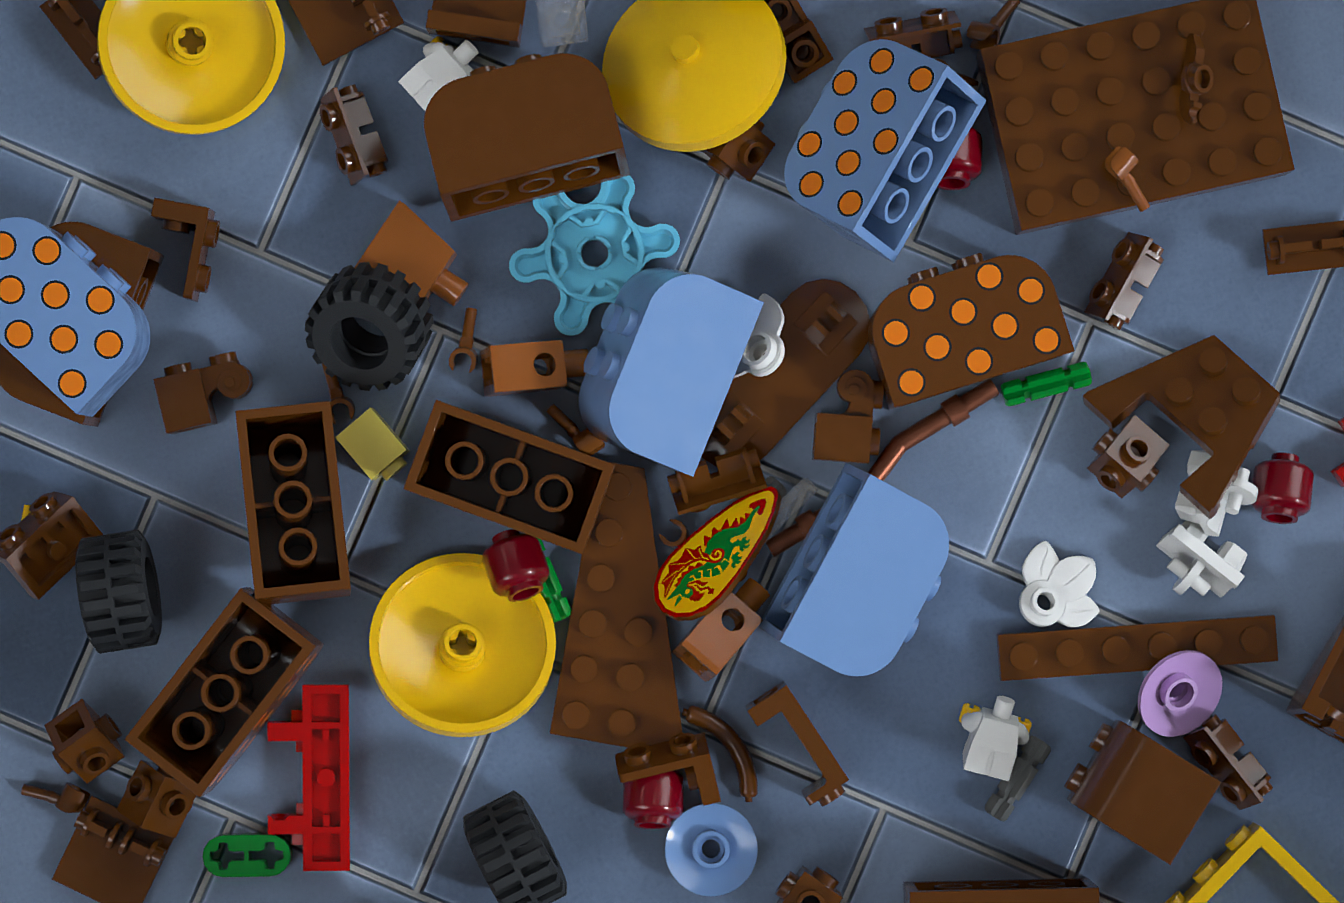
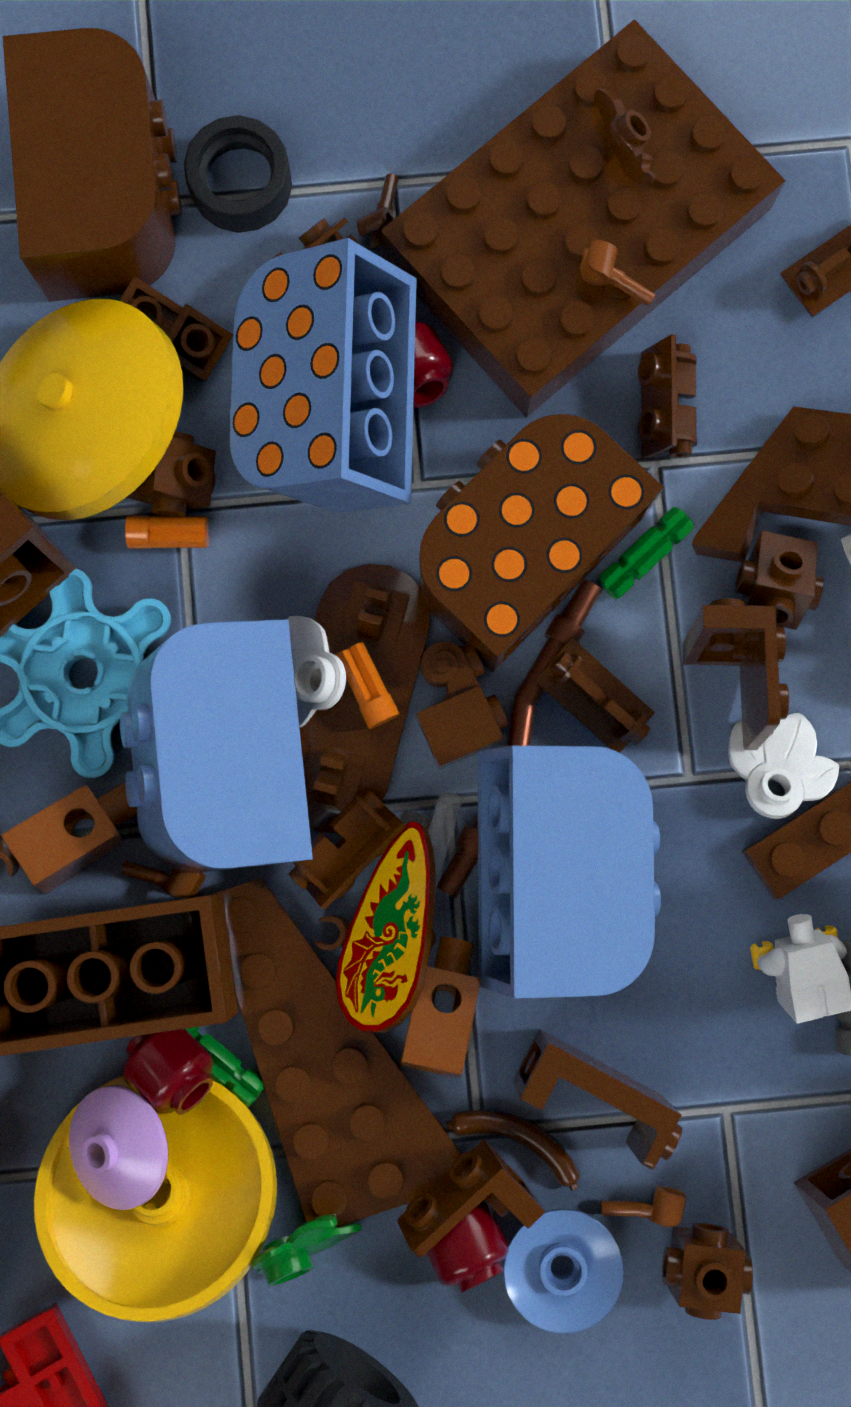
camera: 30 degrees left, 5 degrees down
(470, 602) = (118, 1147): none -> lavender dish
(528, 738) = (290, 1255): none -> green plate
(708, 182) = (166, 532): none -> orange piece
(793, 374) = (374, 700): none -> orange piece
(804, 848) = (664, 1210): none -> dark orange hand
(951, 468) = (595, 697): none -> reddish brown hinge
(1073, 480) = (747, 638): none -> reddish brown bracket

